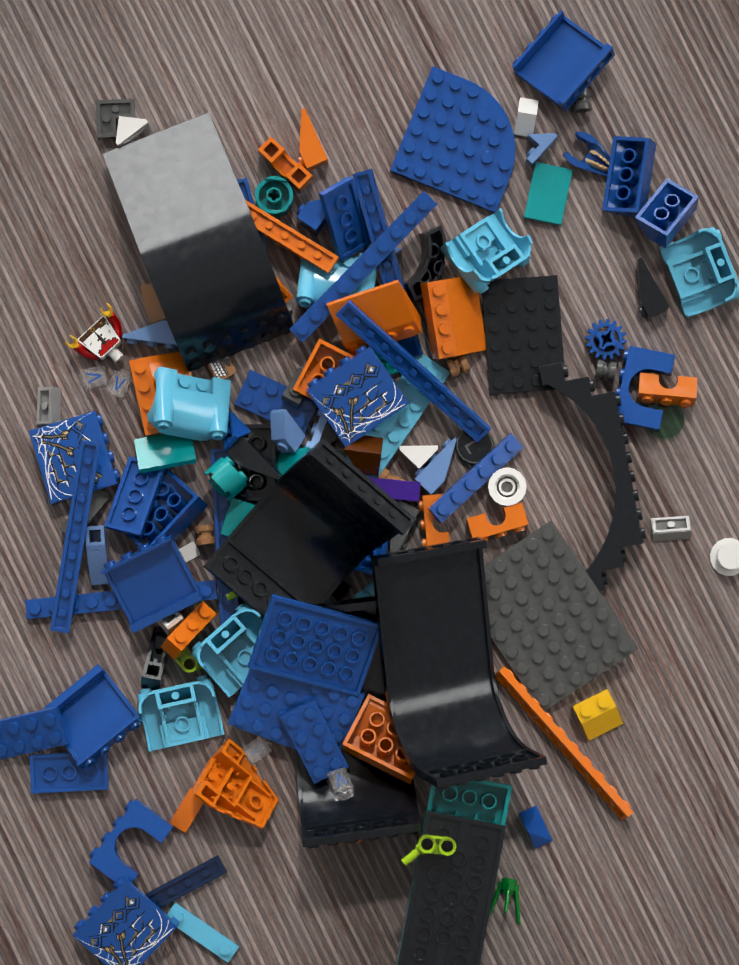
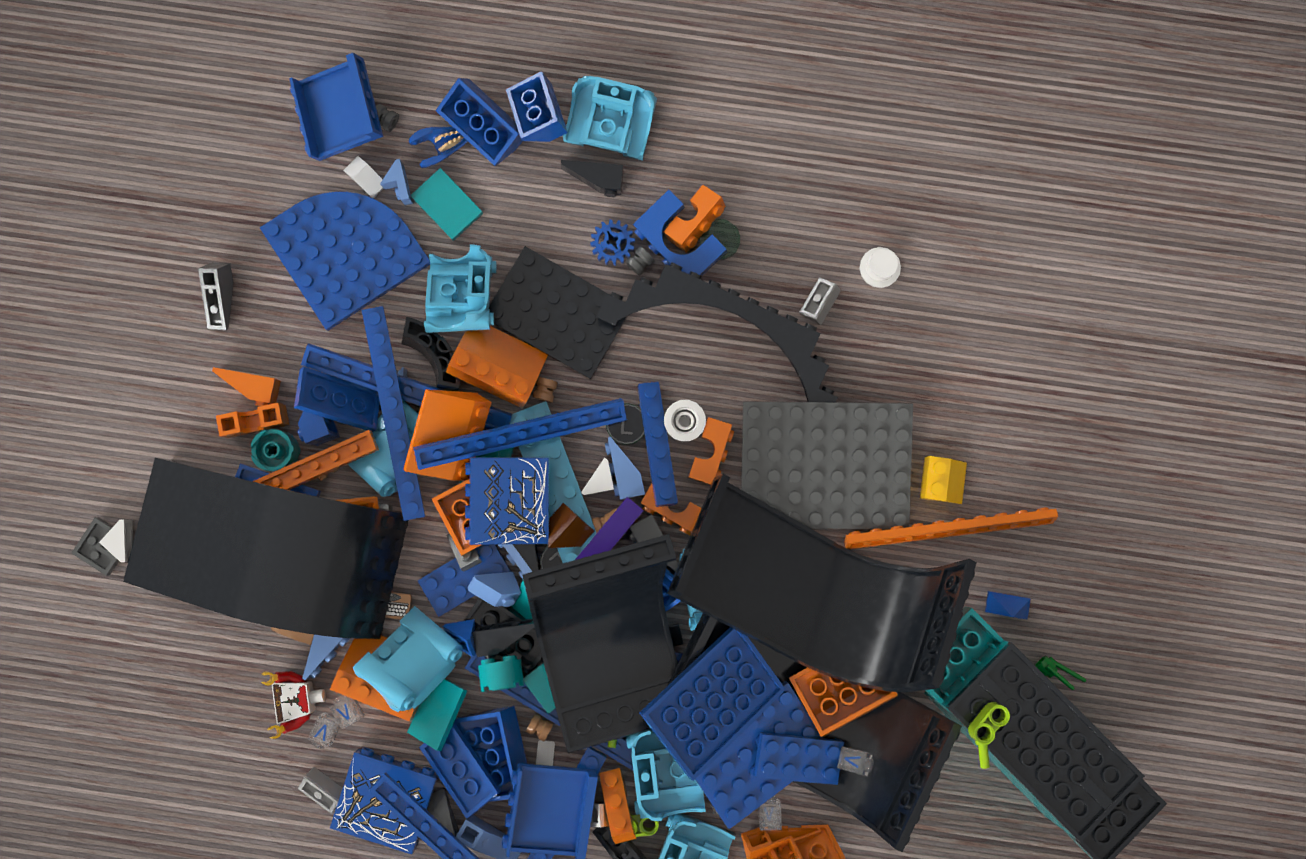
camera: 55 degrees left, 0 degrees up
(360, 70) = (217, 291): none -> dark grey slope

